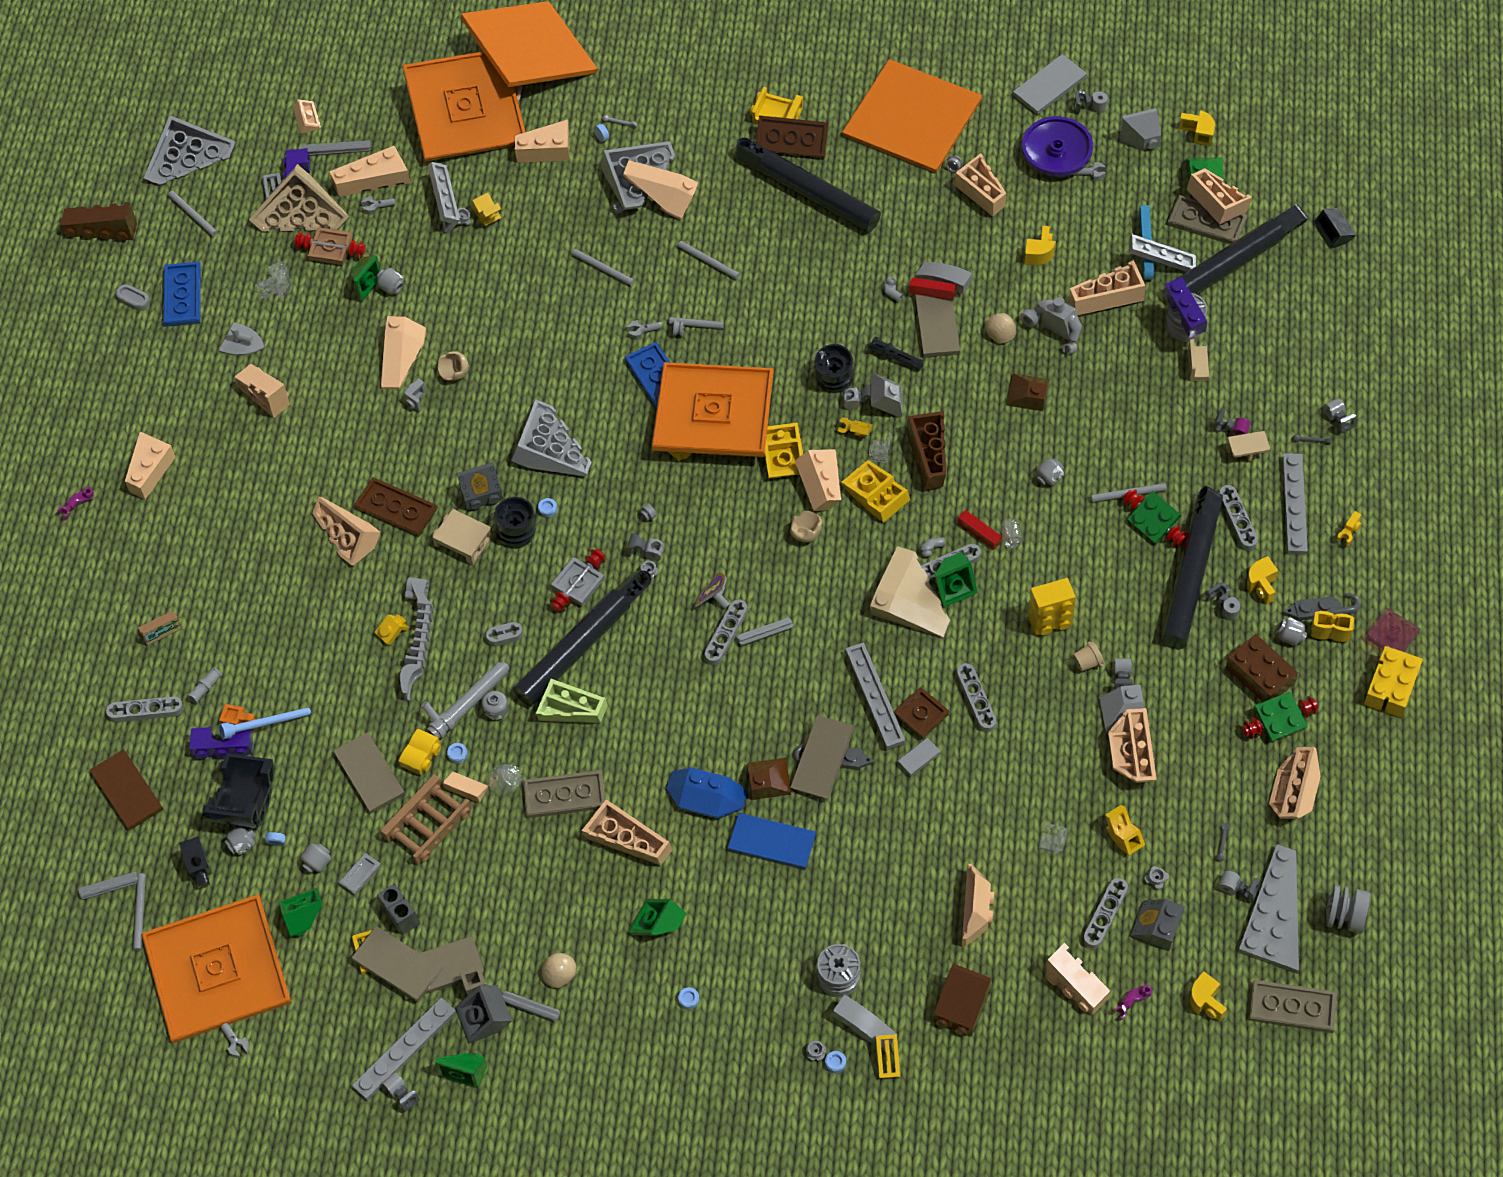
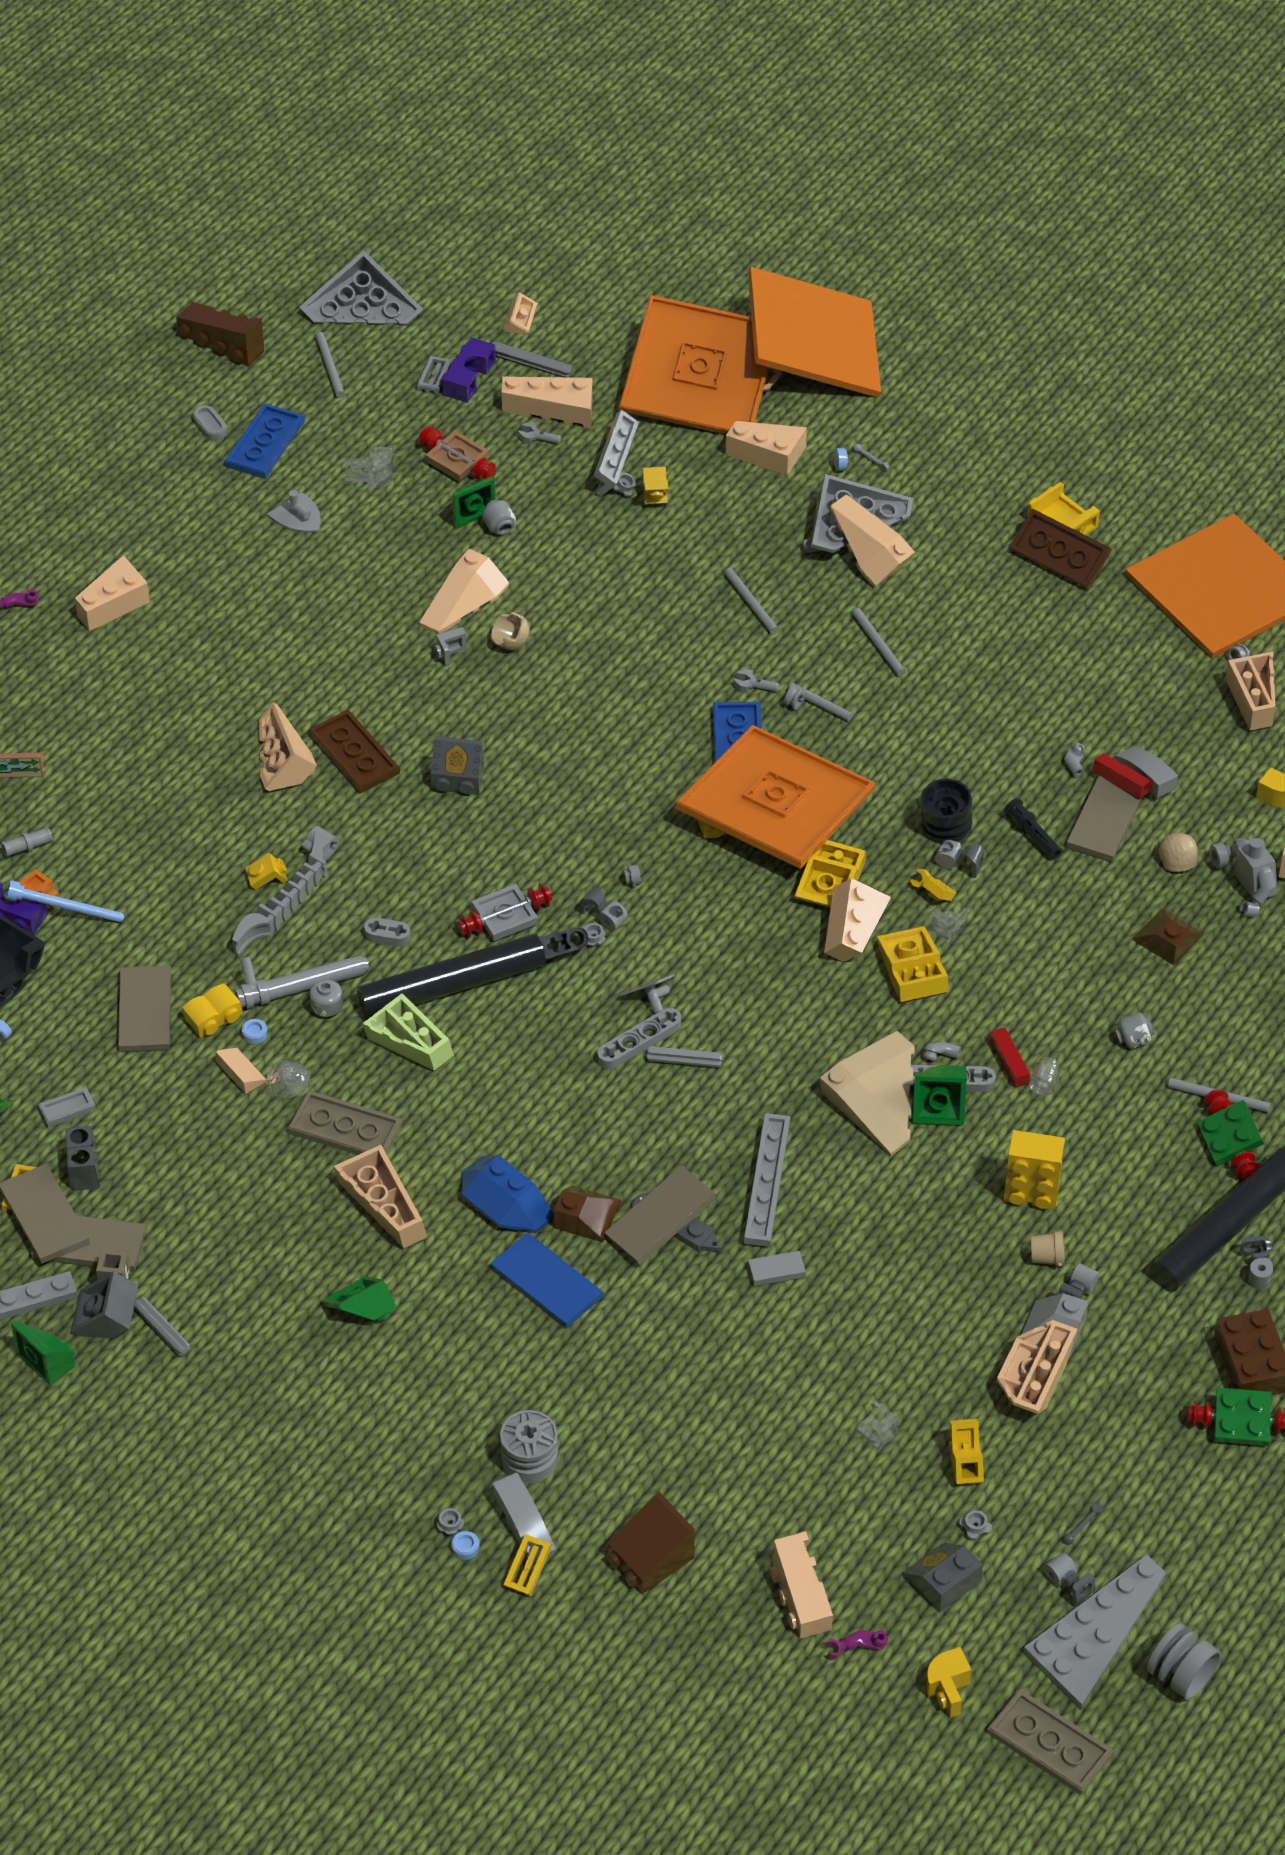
camera: 25 degrees right, 10 degrees down
(263, 389) = (286, 571): light nougat wedge -> none
(298, 204) = (448, 397): tan slope -> none
(315, 857) = (29, 1067): light grey head -> none
(417, 803) = (168, 1063): medium nougat fence -> none
(463, 535) = (407, 810): tan panel -> none
(515, 522) = (472, 818): black wheel -> none
(547, 444) = (565, 756): light grey slope -> none
(547, 507) = (522, 823): light blue tile -> none
(558, 970) = (216, 1302): tan hair -> none
(688, 998) = (343, 1400): light blue tile -> none
(806, 526) = (803, 965): tan hair -> none
(807, 184) = (1046, 608): black piece -> none
(886, 395) = (991, 866): light grey slope -> none
(921, 713) = (809, 1221): reddish brown plate -> none
(928, 447) = (1008, 936): reddish brown wedge -> none
(974, 698) = (886, 1235): light grey beam -> none
(976, 906) = (735, 1456): light nougat wedge -> none
(1108, 914) = (884, 1531): light grey beam -> none
(1296, 784) = (1214, 1498): light nougat wedge -> none

